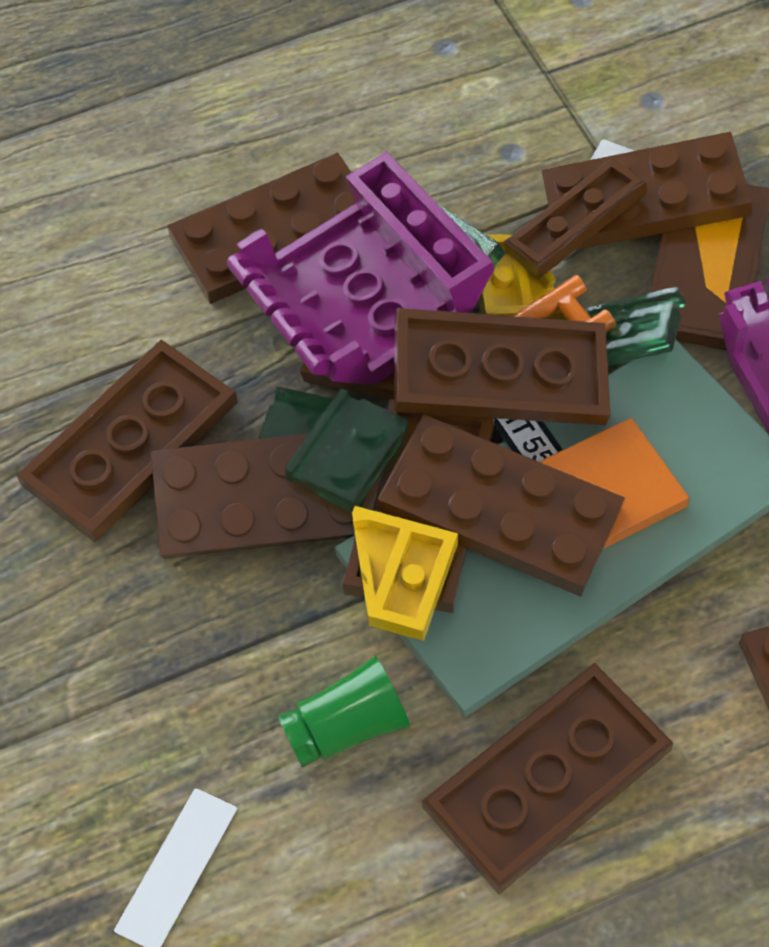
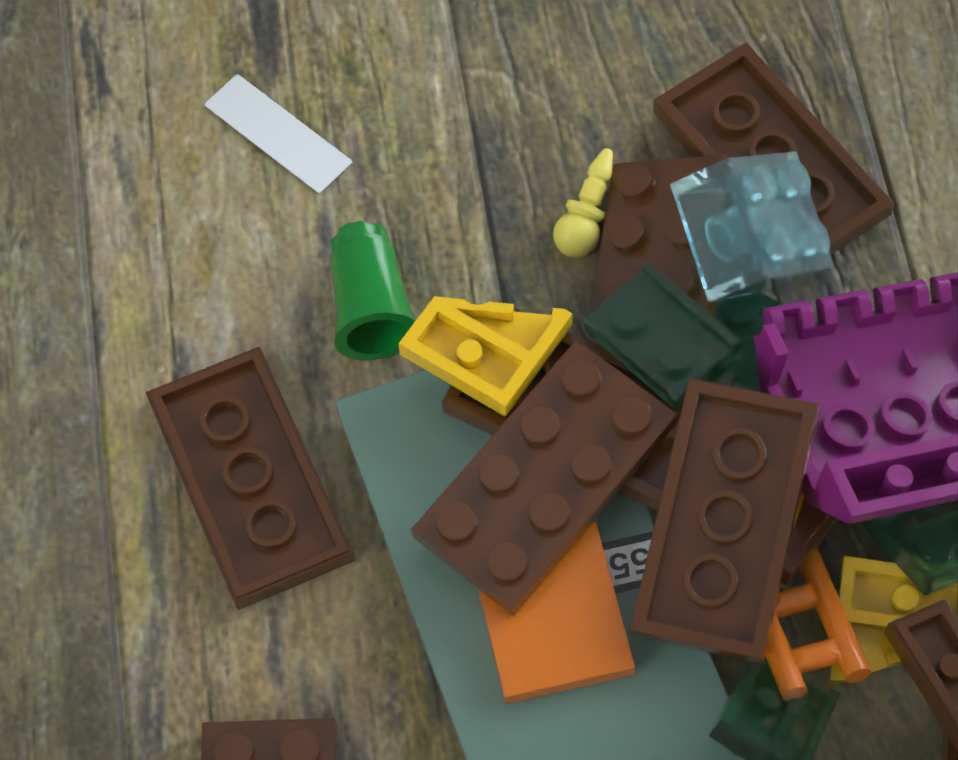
camera: 105 degrees right, 5 degrees up
(227, 403) = (752, 224): none -> clear light blue brick
(231, 574) = (577, 231): none -> light yellow bar

